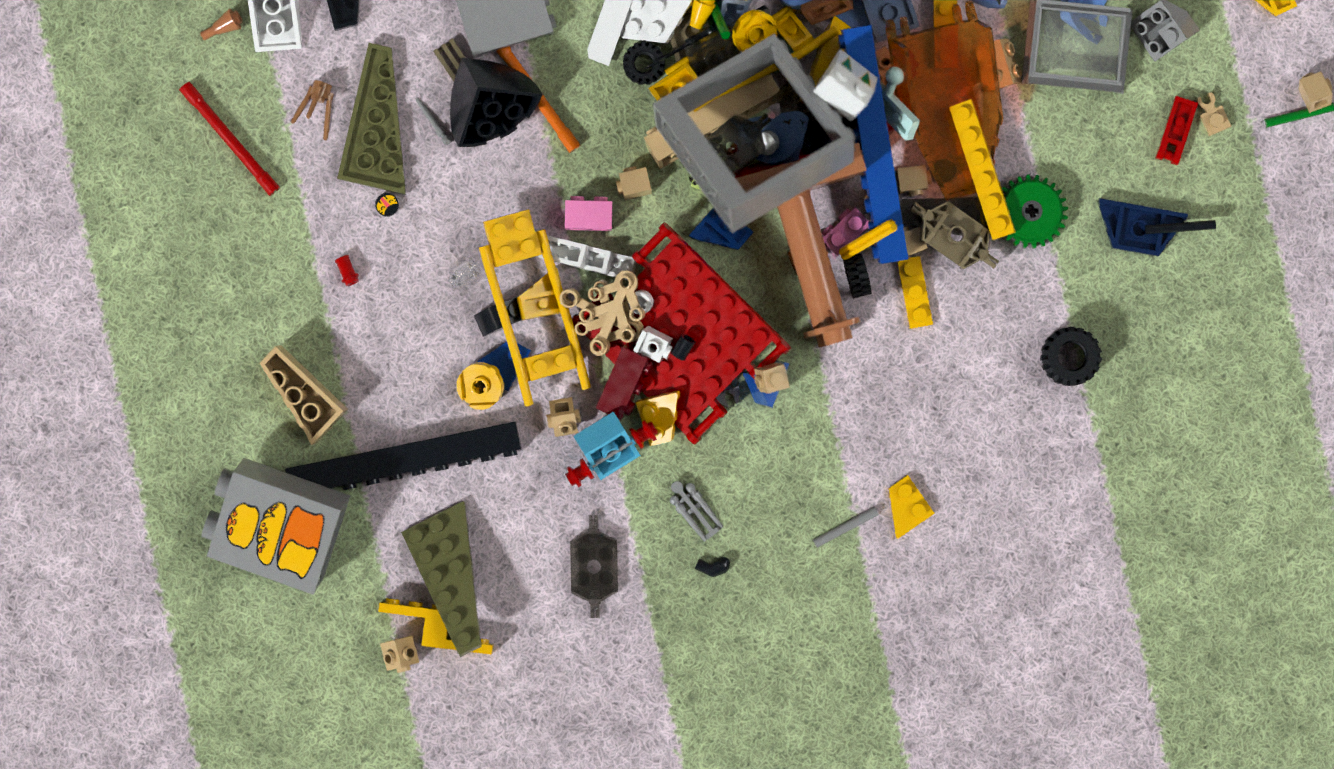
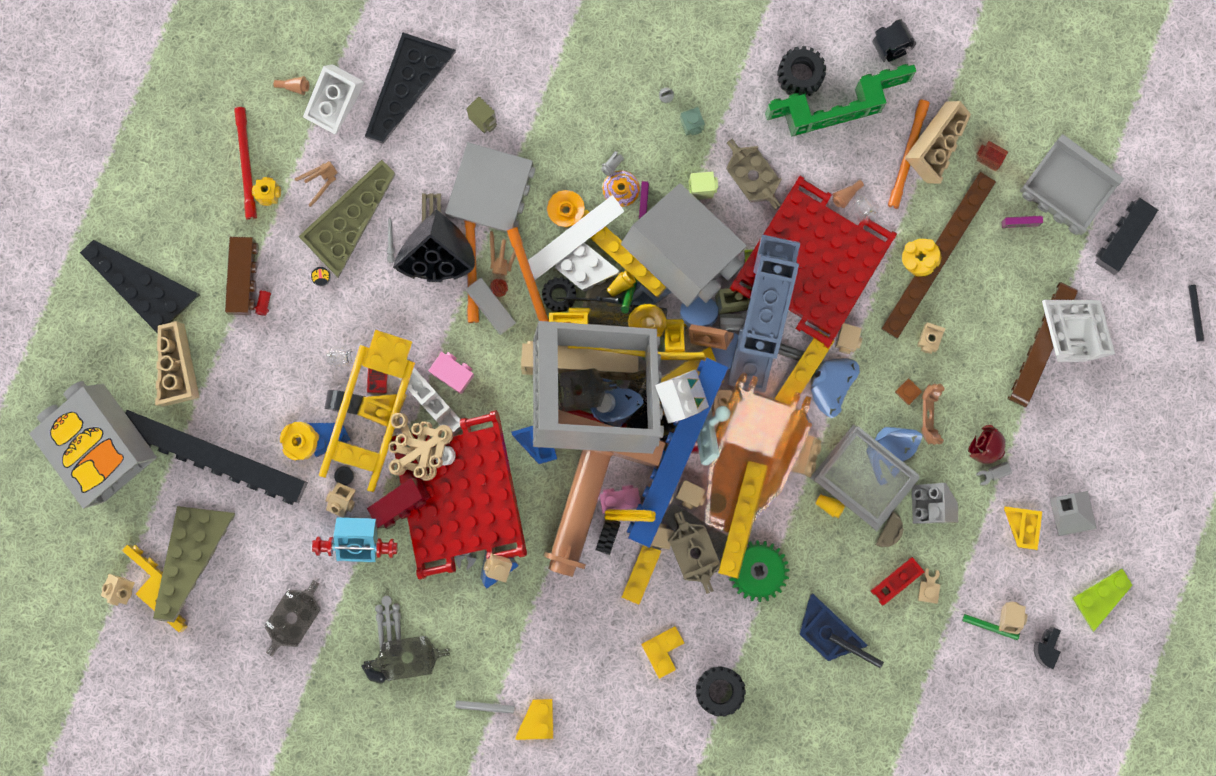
camera: 30 degrees right, 5 degrees down
(220, 336) = (145, 290): none -> black wing
(281, 157) = (269, 197): none -> yellow brick
(306, 258) = (240, 275): none -> reddish brown brick
(517, 274) = (376, 382): none -> red tile
(548, 391) = (344, 475): none -> black tile
(564, 72) = (500, 265): none -> medium nougat plant
(577, 96) = (499, 287): none -> clear red plate
(582, 121) = (490, 306): none -> light grey tile
(604, 67) = (517, 244): none -> orange piece
(634, 183) = (497, 371): tan brick -> none
(661, 340) = (440, 490): white brick -> none
(662, 413) = (409, 543): yellow wing -> none
(683, 347) = (452, 505): black hinge -> none
(722, 543) = (391, 663): none -> clear smoke plate
(981, 357) = (657, 649): none -> yellow plate
(1061, 98) = (830, 505): none -> yellow cone
(1138, 84) = (891, 532): none -> dark tan tile

